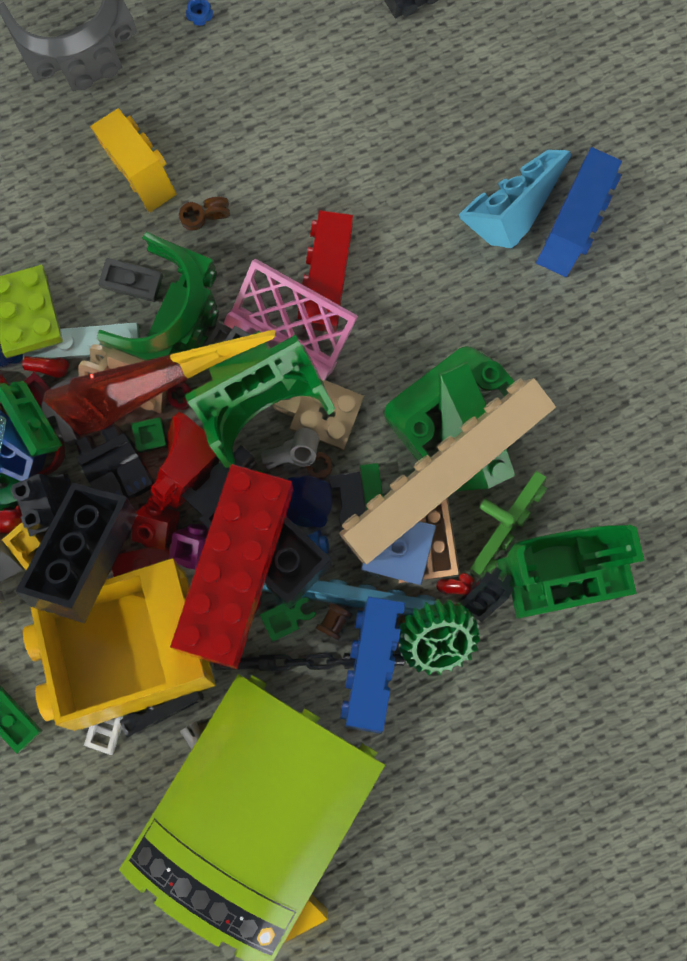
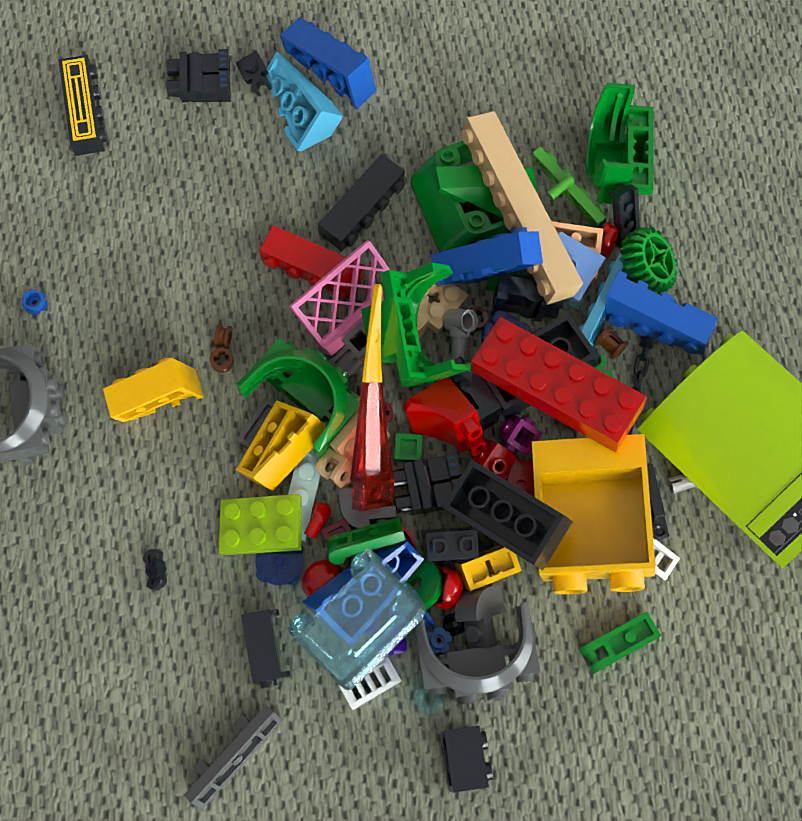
camera: 75 degrees left, 10 degrees down
(107, 300) = (280, 445): none -> yellow wedge
(371, 451) = (491, 257): none -> blue wedge
(416, 302) = (361, 203): none -> black brick
(513, 83) = (200, 77): none -> black hips
(541, 136) = (253, 71): none -> black plate

